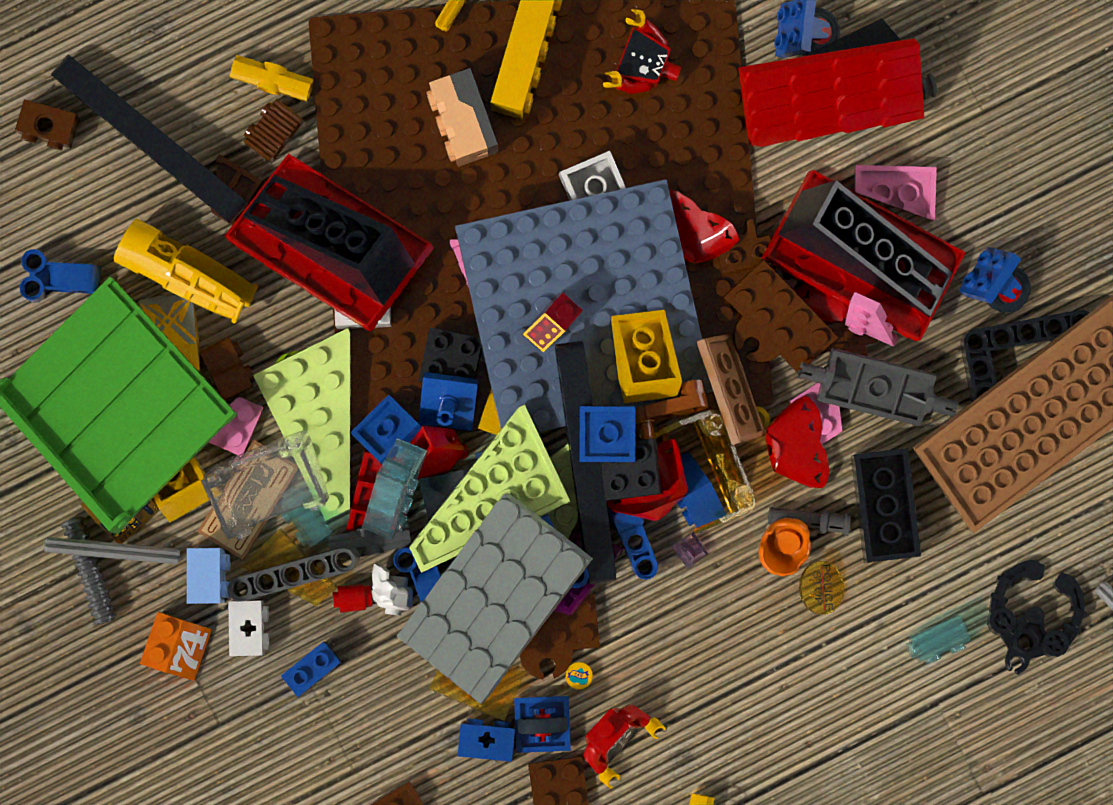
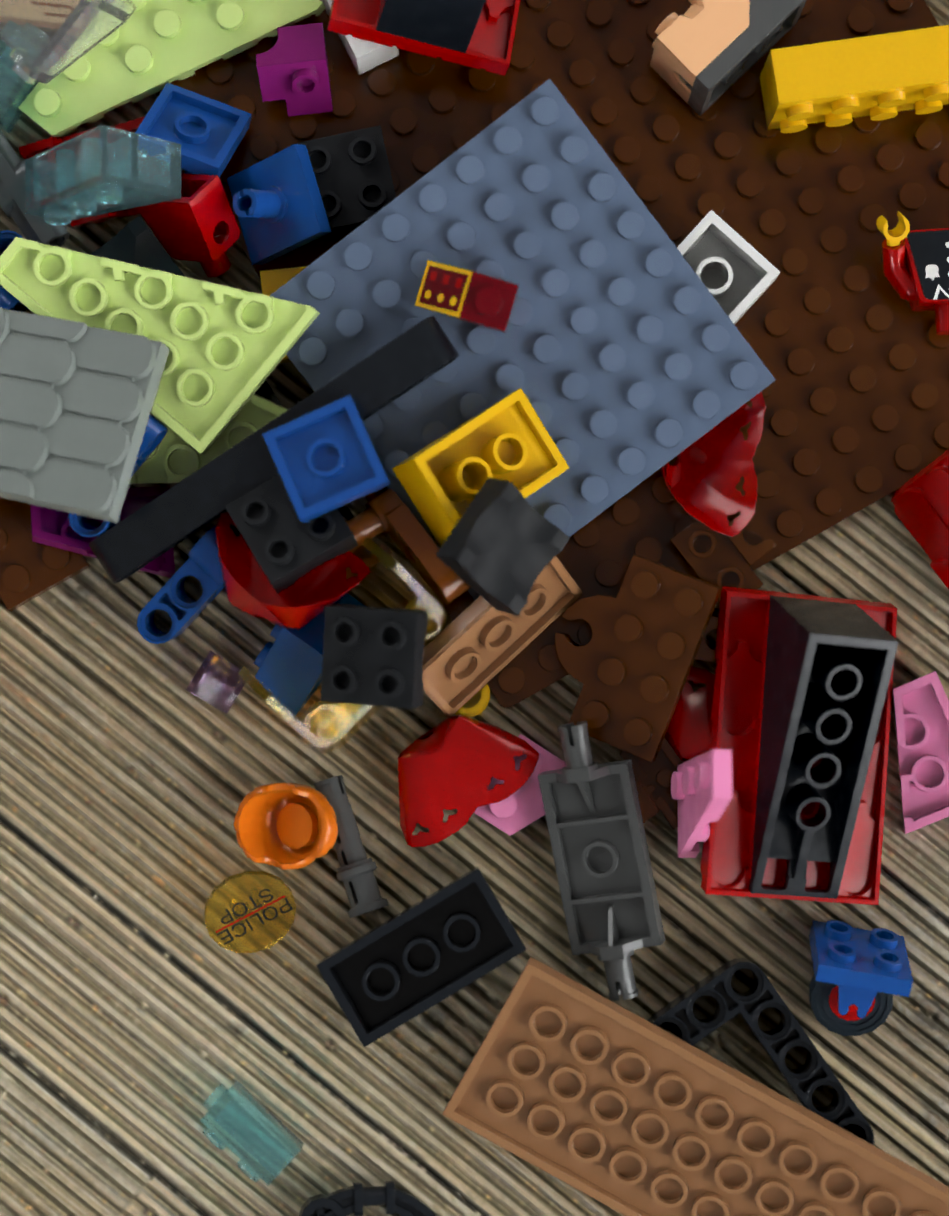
camera: 70 degrees right, 0 degrees up
(378, 358) = (297, 70): none -> magenta brick
(694, 363) = (501, 546): none -> black brick
(720, 456) = (373, 656): none -> black brick

